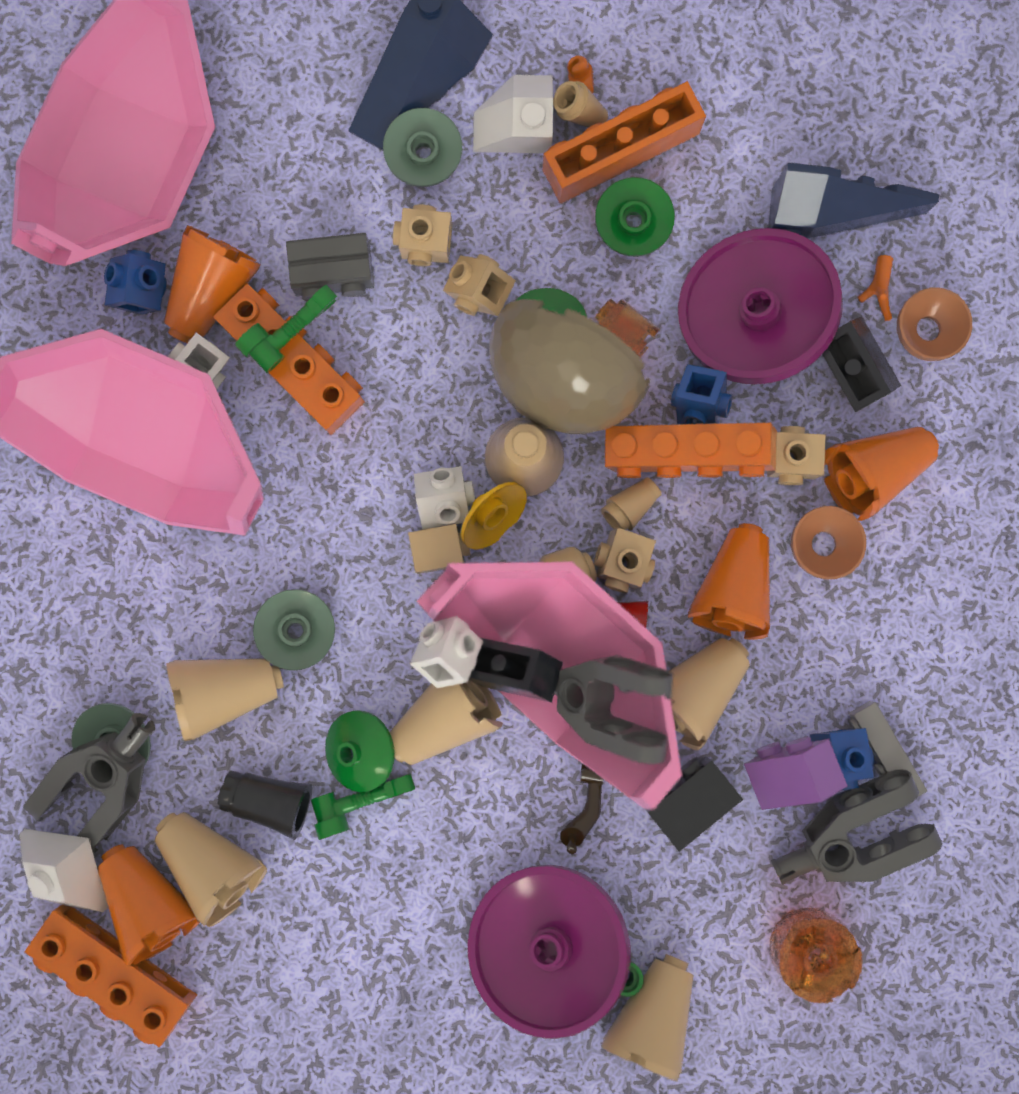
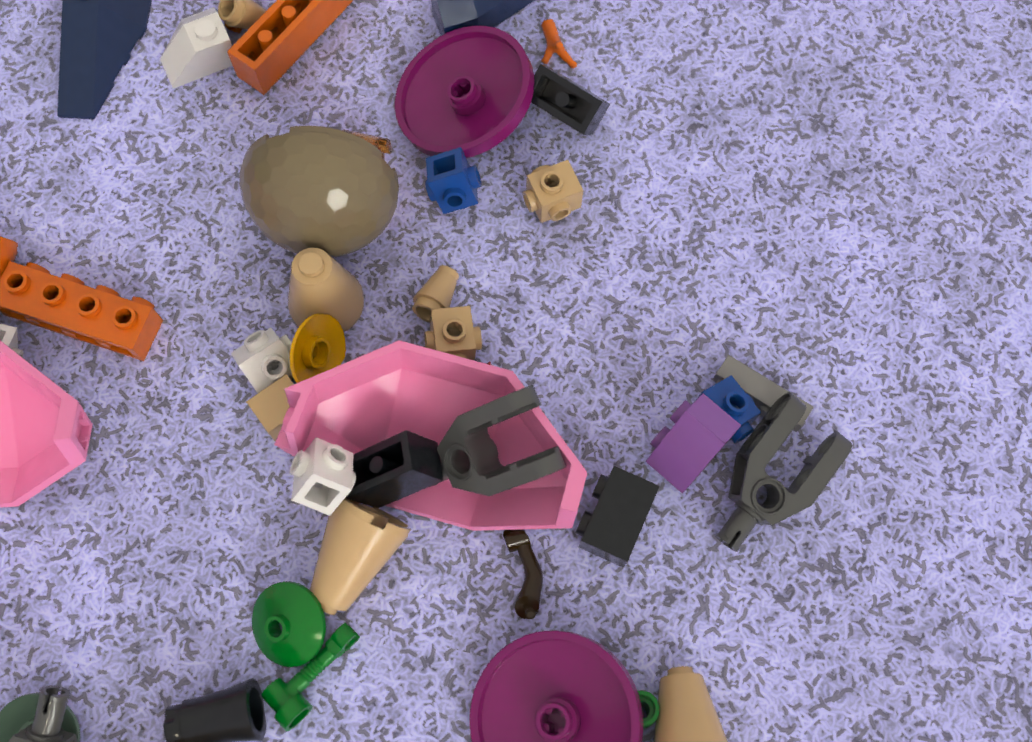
camera: 30 degrees left, 15 degrees down
(219, 691) = (125, 631): tan cone -> none
(265, 347) = (46, 300): green brick -> none
(283, 611) = (167, 526): sand green dish -> none
(333, 261) = (82, 221): dark grey brick -> none
(422, 129) = (119, 87): sand green dish -> none
(423, 235) = (155, 161): tan brick -> none
(478, 285) = (216, 178): tan brick -> none
(637, 198) = (325, 63): green dish -> none
(691, 448) = (461, 219): orange brick -> none
(705, 687) = (577, 410): tan cone -> none
(737, 586) = (560, 318): orange cone -> none
(825, 974) = (823, 593): clear orange brick -> none
(848, 539) = (622, 231): nougat piece -> none
(877, 468) = (623, 172): orange cone -> none
(950, 315) = (613, 37): nougat piece -> none

